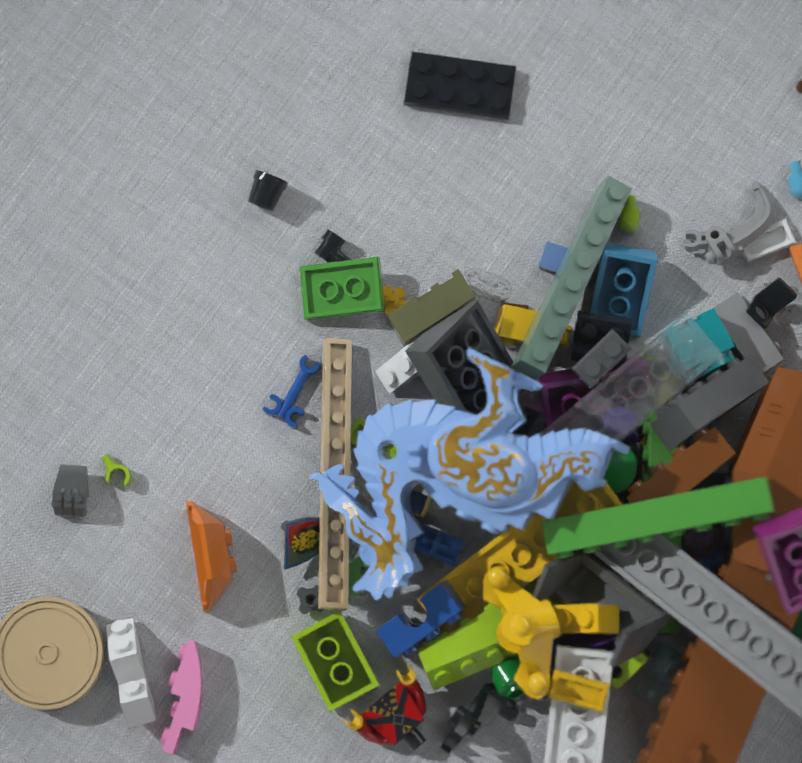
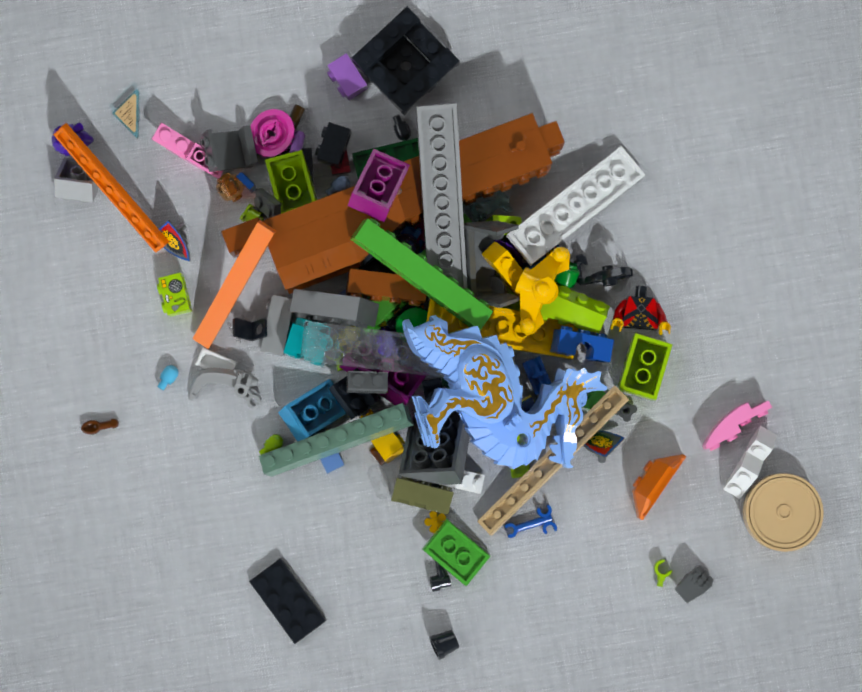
camera: 135 degrees left, 5 degrees up
(578, 690) = (542, 233): yellow tile -> none

